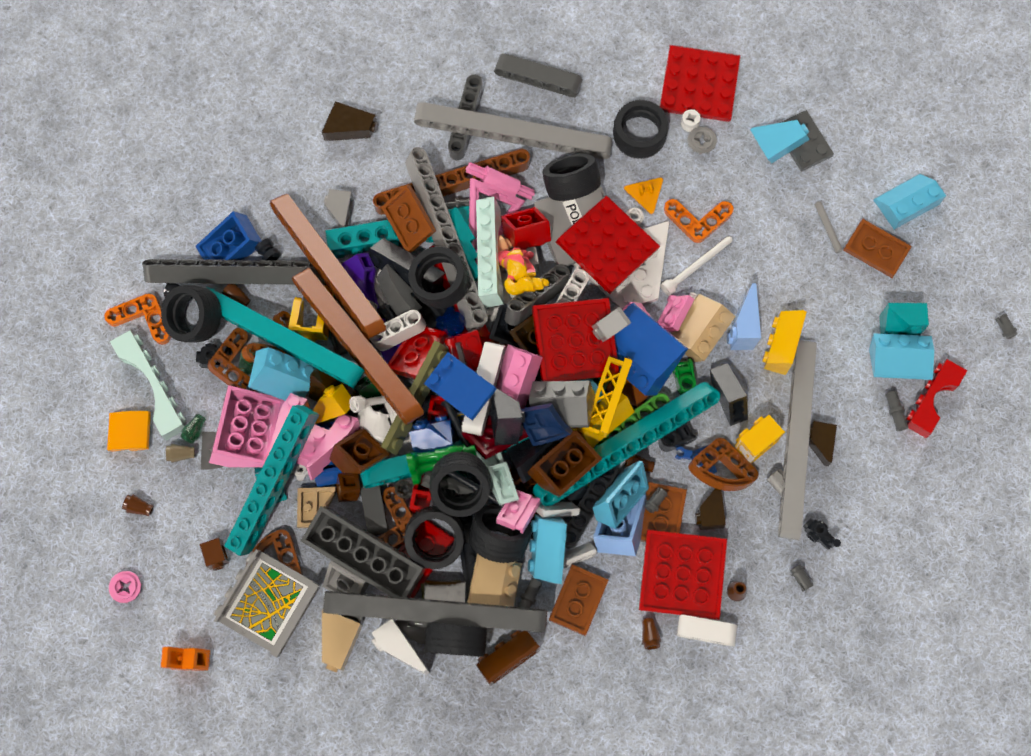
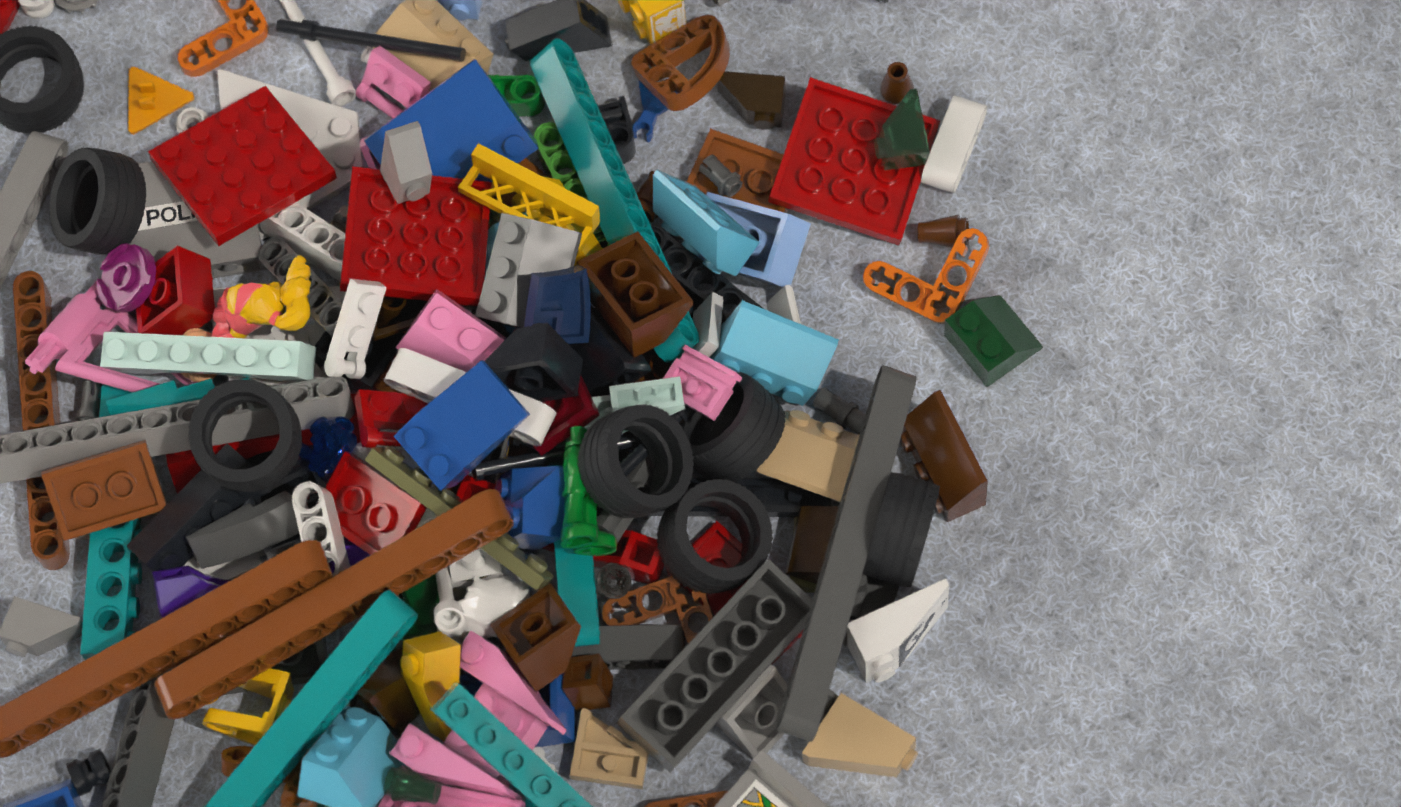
camera: 75 degrees left, 5 degrees down
(273, 407) = (409, 786): none -> clear green cone
(510, 319) = (354, 329): none -> white plate
(532, 202) = (126, 277): none -> magenta tile
(578, 600) = (867, 331): dark orange plate -> none
(590, 673) = (990, 338): none -> dark green slope
(610, 632) = (928, 292): none -> orange beam
(699, 263) = (312, 31): none -> black bar
(700, 599) = (903, 136): none -> clear green slope

